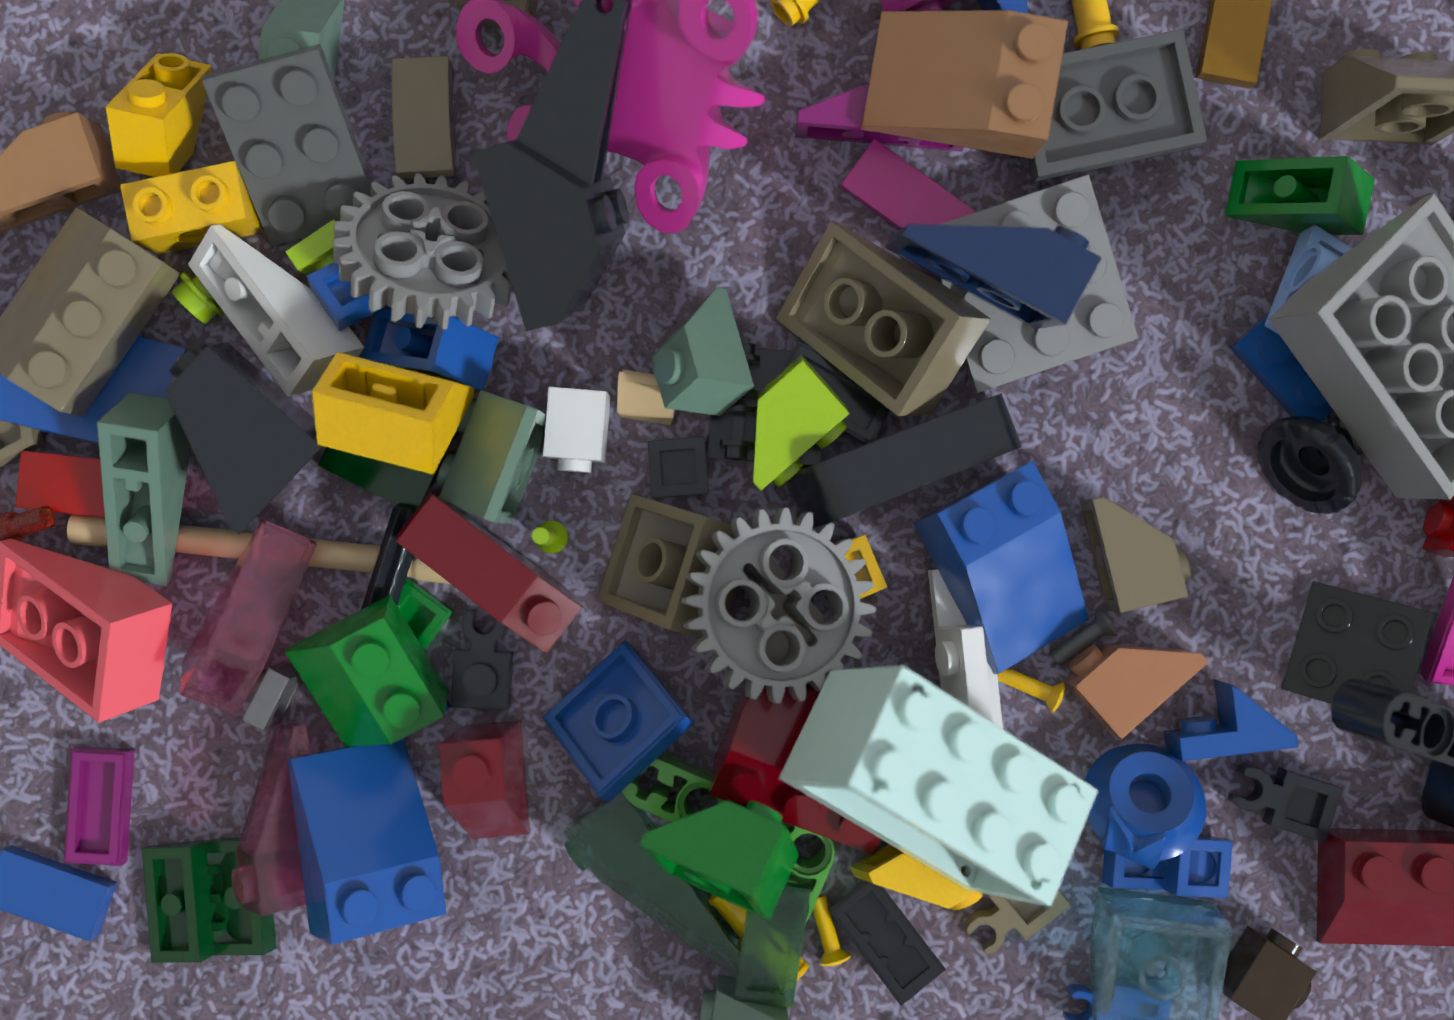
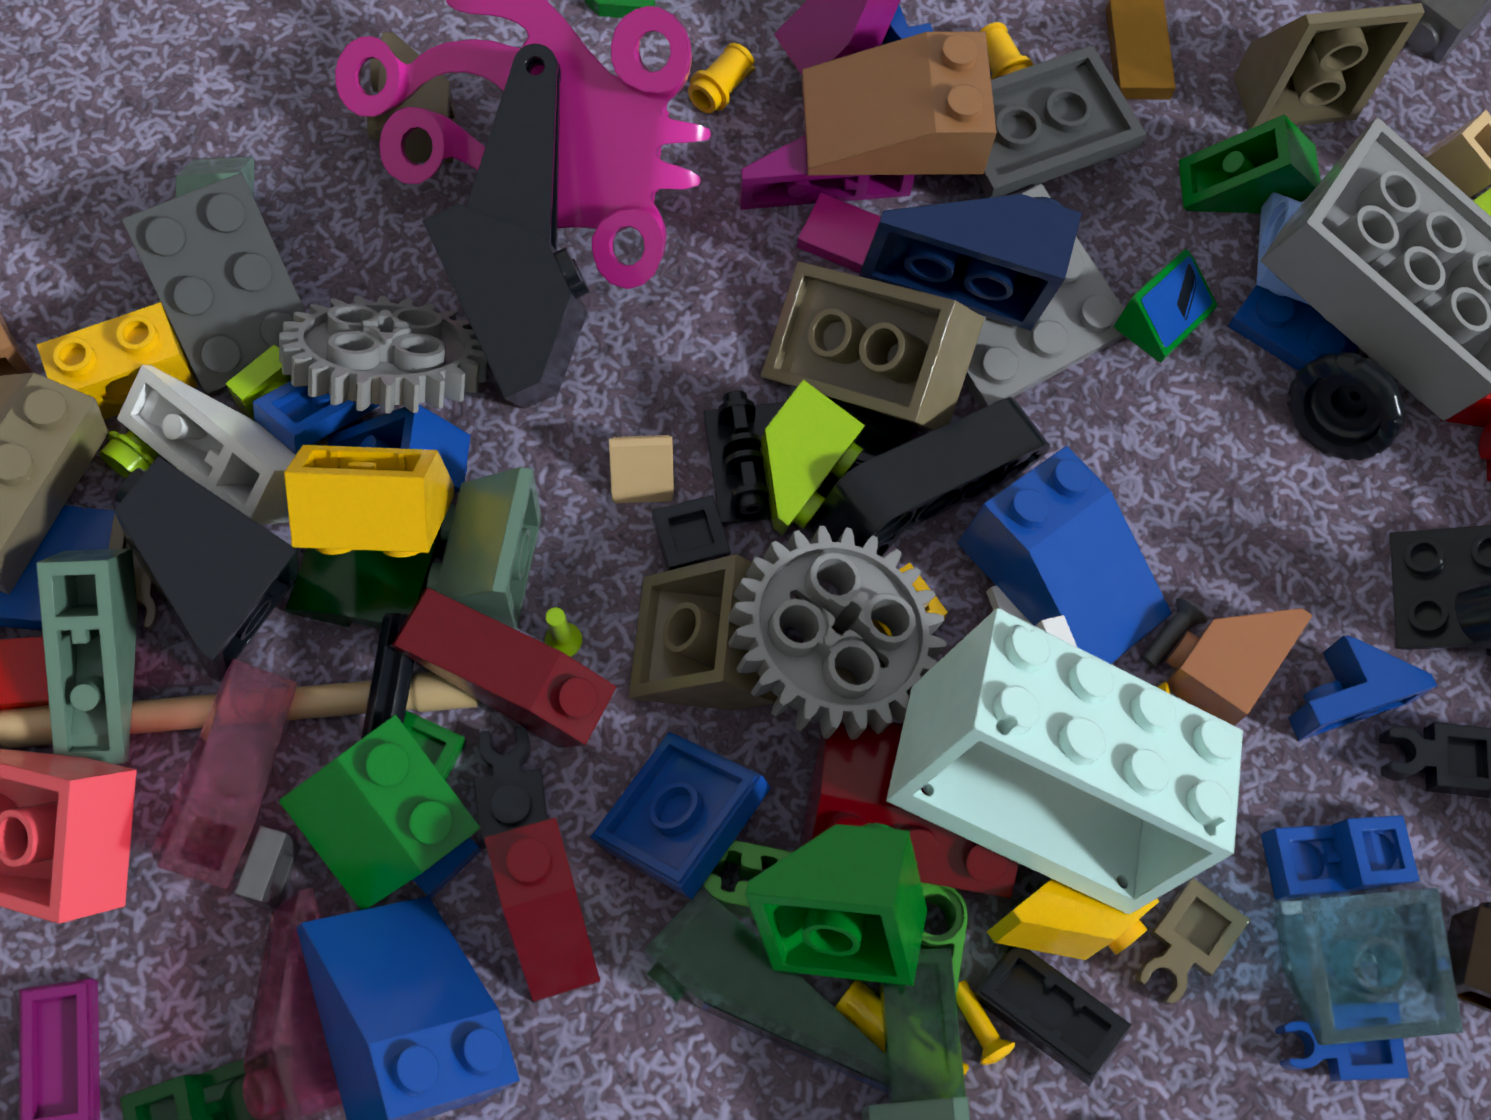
camera: 20 degrees left, 20 degrees down
(158, 115) = (68, 284): yellow slope -> none
(423, 117) = (354, 246): dark tan slope -> none
(576, 428) = (572, 511): white brick -> none
(704, 360) = (699, 411): sand green slope -> none
(1132, 558) = (1196, 533): dark tan slope -> none
(1145, 803) = (1298, 790): blue piece -> none
(1174, 329) = (1167, 308): none -> slope

